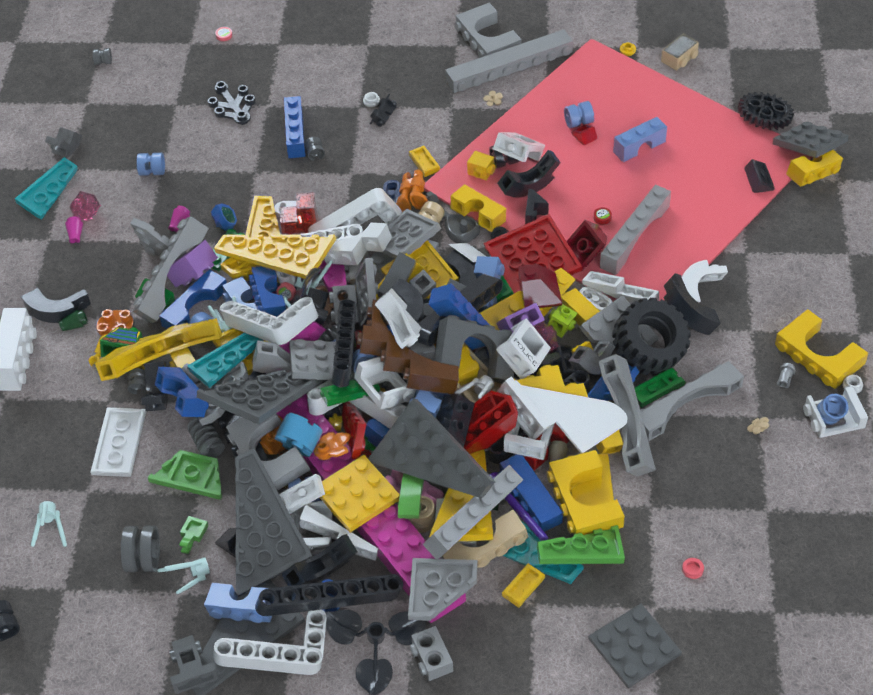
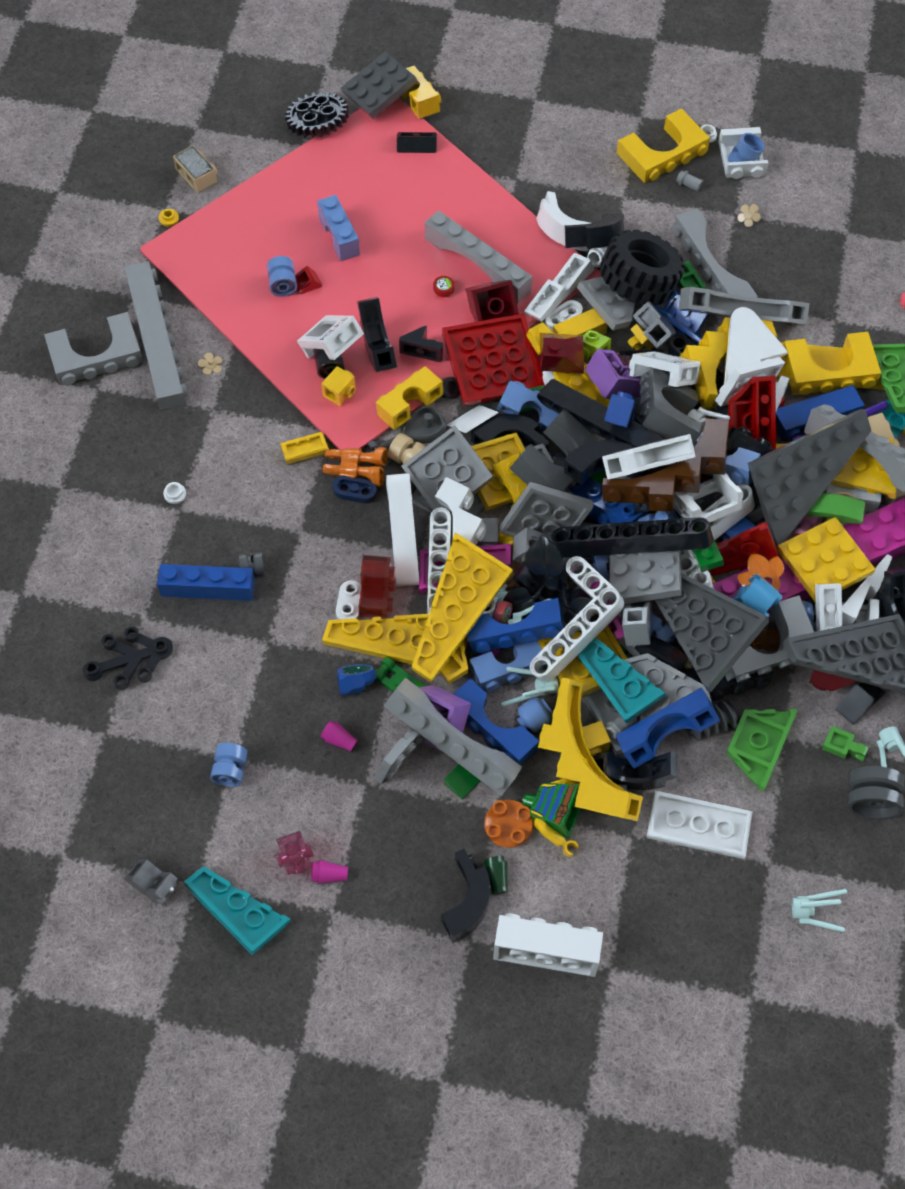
camera: 85 degrees left, 10 degrees up
(385, 106) = (197, 480): black hinge -> none

